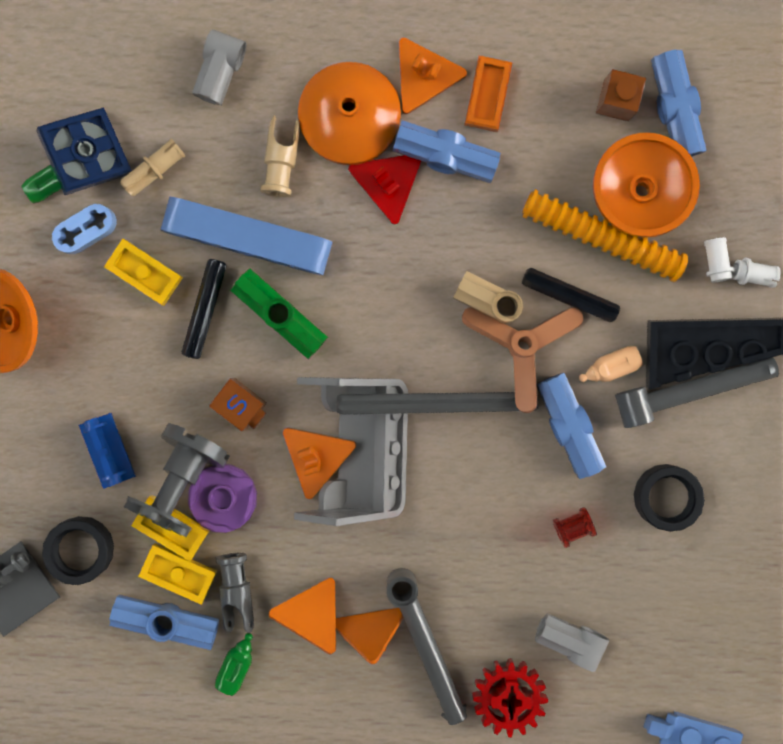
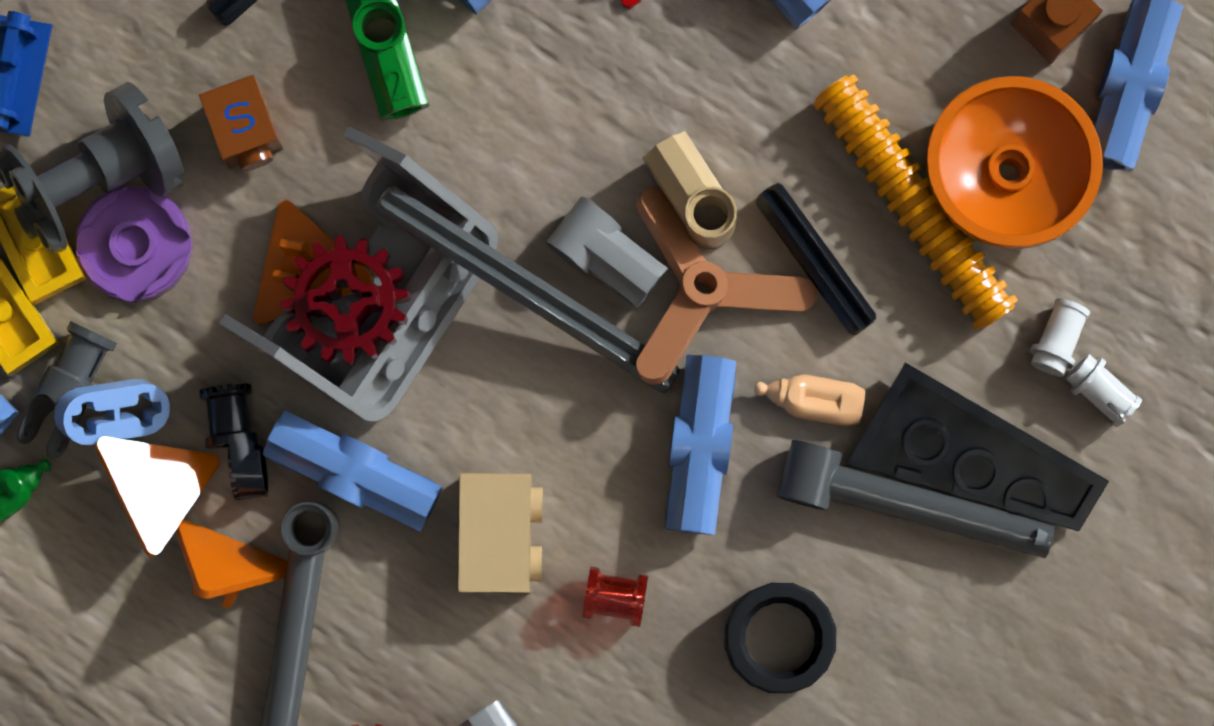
camera: 25 degrees right, 5 degrees down
(266, 591) = (110, 398): none -> light blue beam
(331, 562) = (231, 429): none -> black connector
(360, 480) = (343, 275): none -> dark red gear
(404, 545) = (352, 470): none -> medium blue piece
(456, 356) = (595, 244): none -> light grey piece
(497, 533) = (497, 533): none -> tan brick

